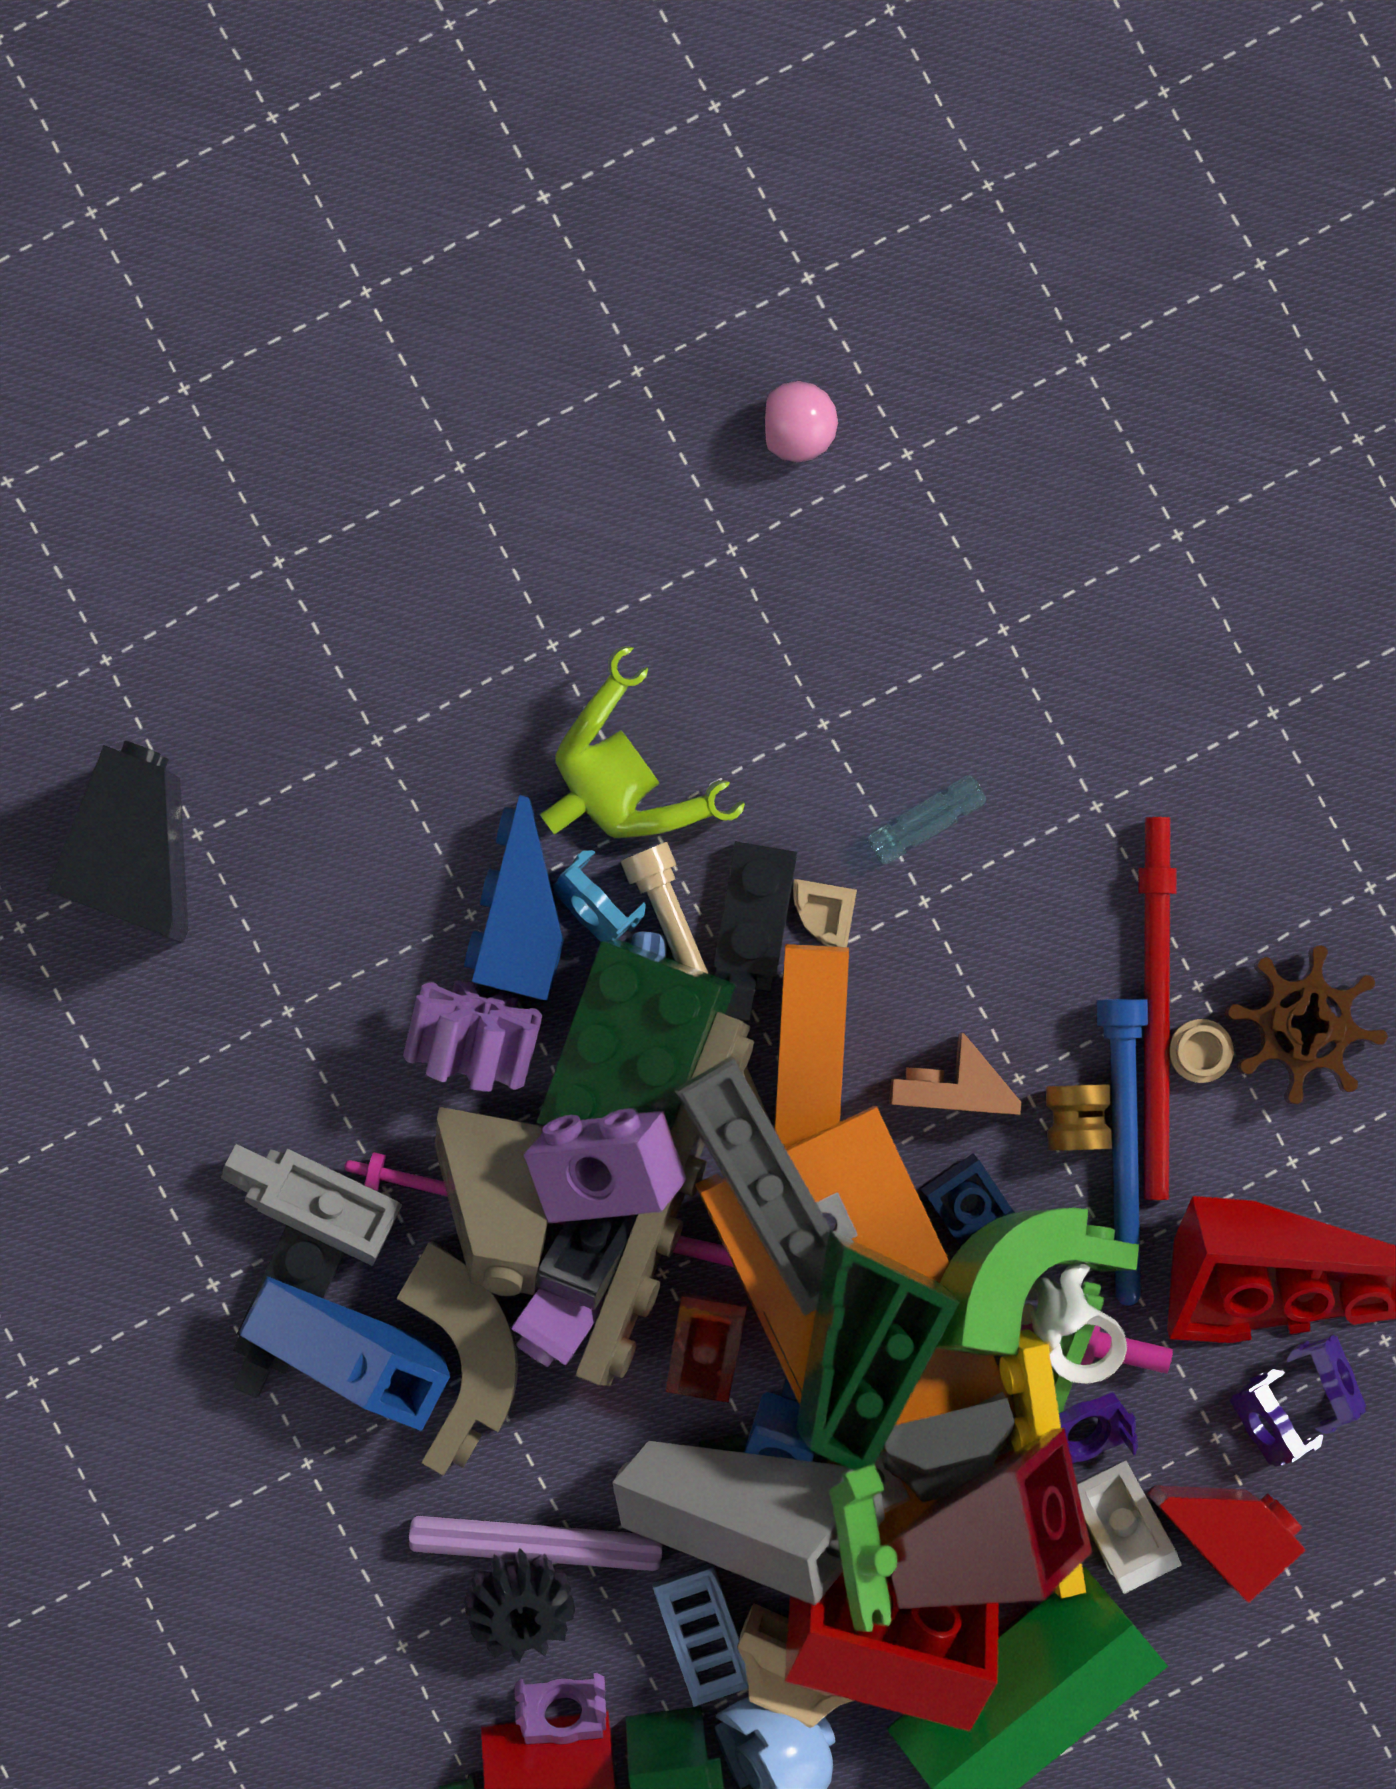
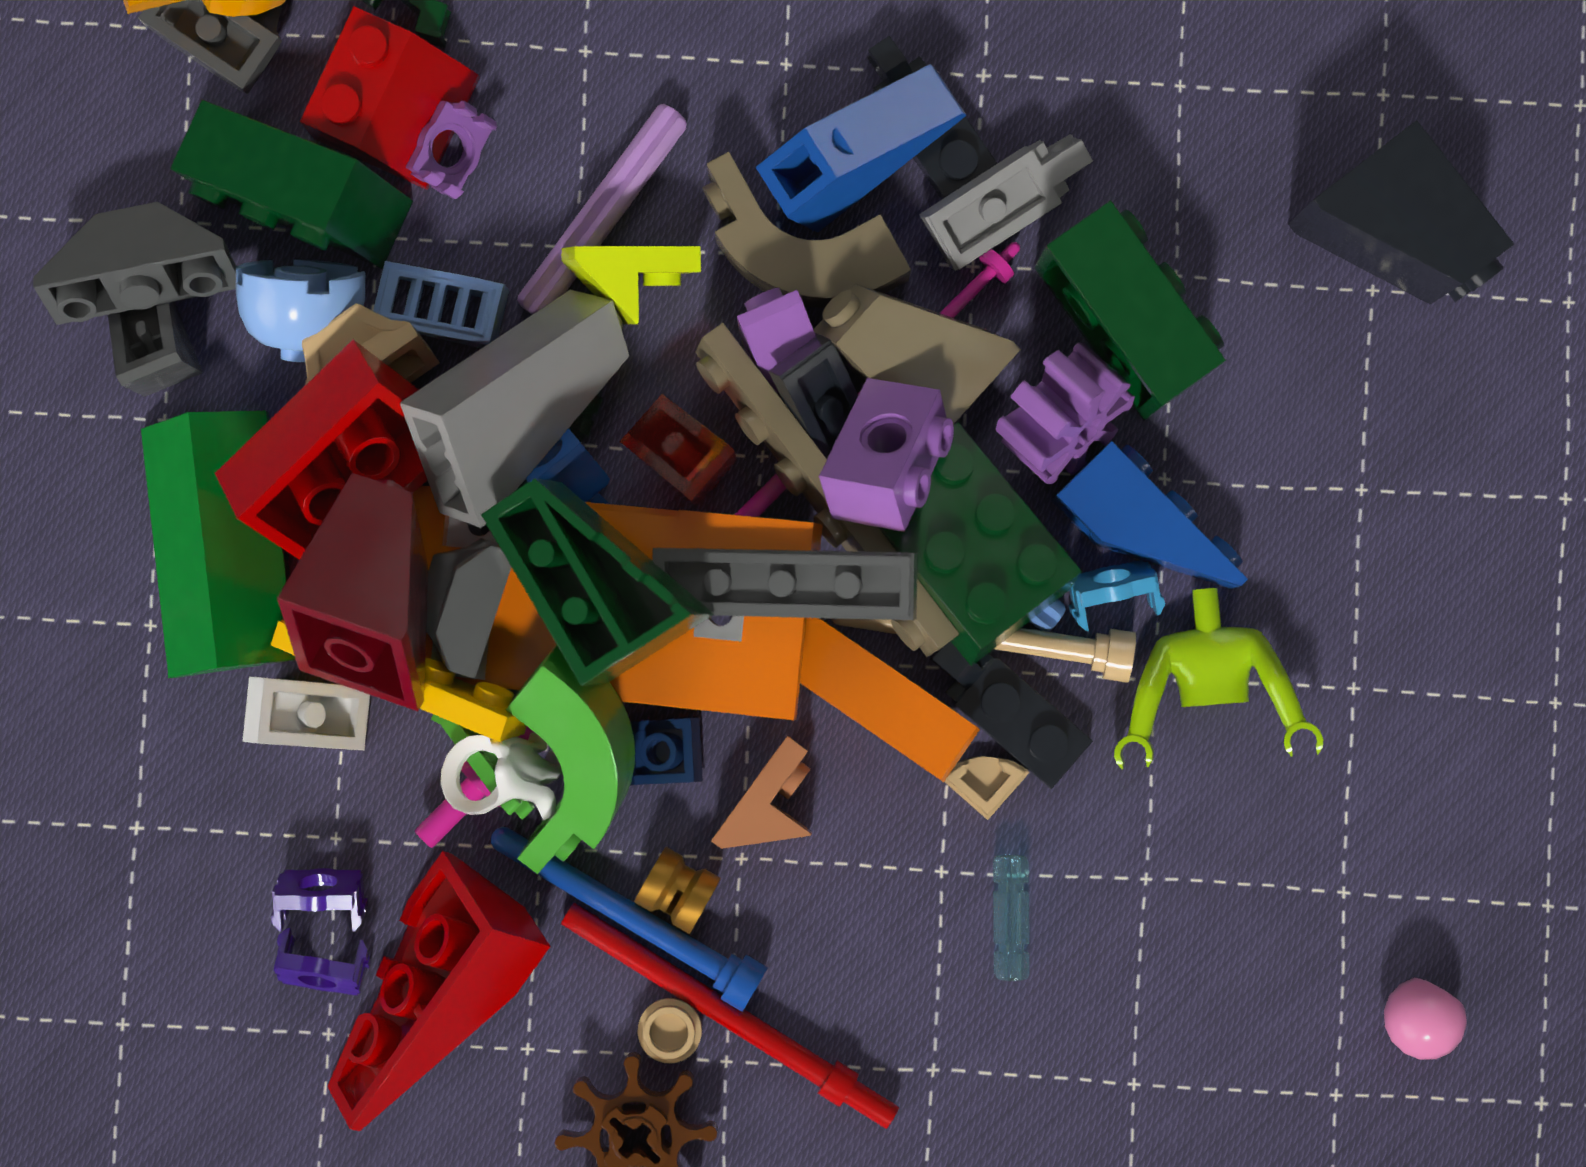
camera: 120 degrees right, 0 degrees up
(348, 1034) = (1130, 307): none -> dark green brick
(519, 1605) = (558, 163): black gear -> none
(583, 1497) = (614, 271): none -> neon yellow slope
(862, 1556) = (417, 468): bright green piece -> none
(1113, 1427) = (396, 755): dark purple piece -> none
(1235, 1532) = (242, 804): red slope -> none

